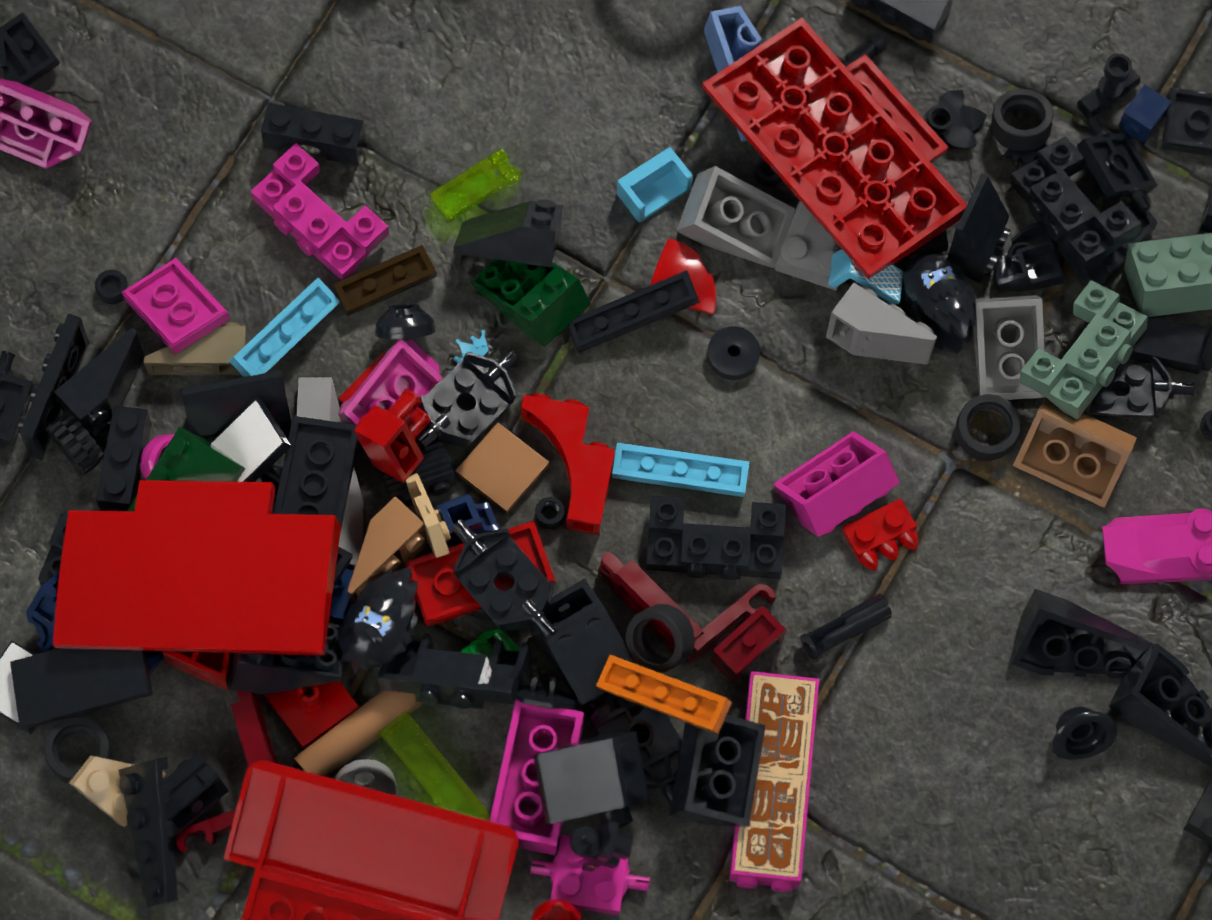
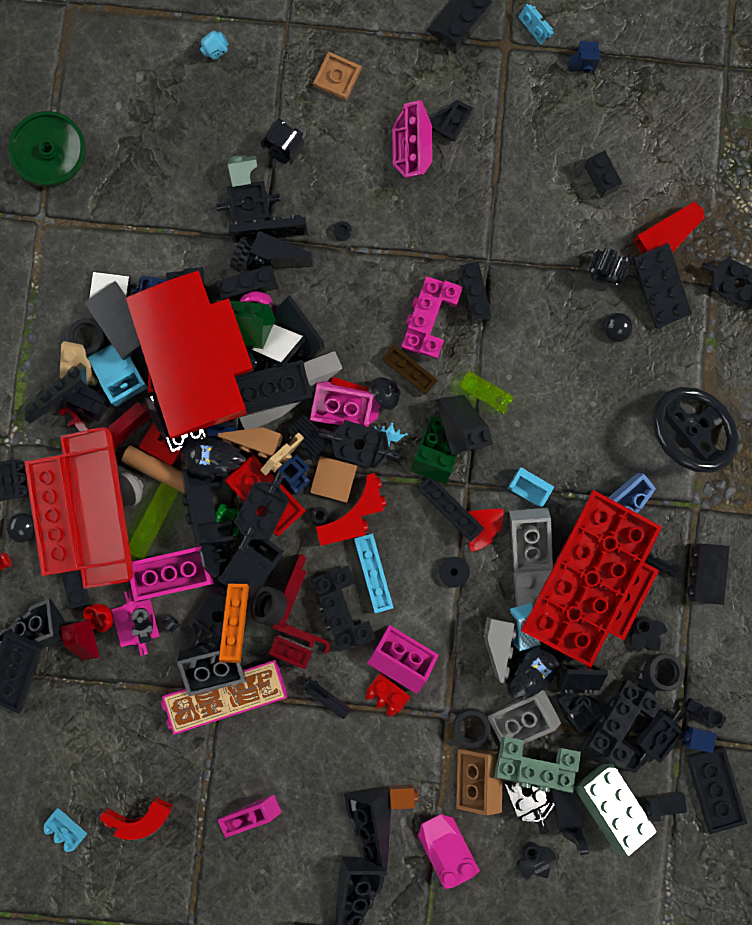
camera: 65 degrees right, 15 degrees up
(169, 723) = (118, 377): none -> medium azure slope
(175, 305) = (343, 269): dark pink tile -> none
(204, 357) = (327, 298): dark tan slope -> none
(285, 330) = (353, 332): medium azure plate -> none
(391, 435) = (312, 416): red brick -> none
(590, 776) = (177, 603): black slope -> none
(985, 825) = (250, 816): none -> dark pink slope
(1052, 572) = (403, 796): none -> dark orange brick
(1083, 733) = (321, 847): black hat -> none

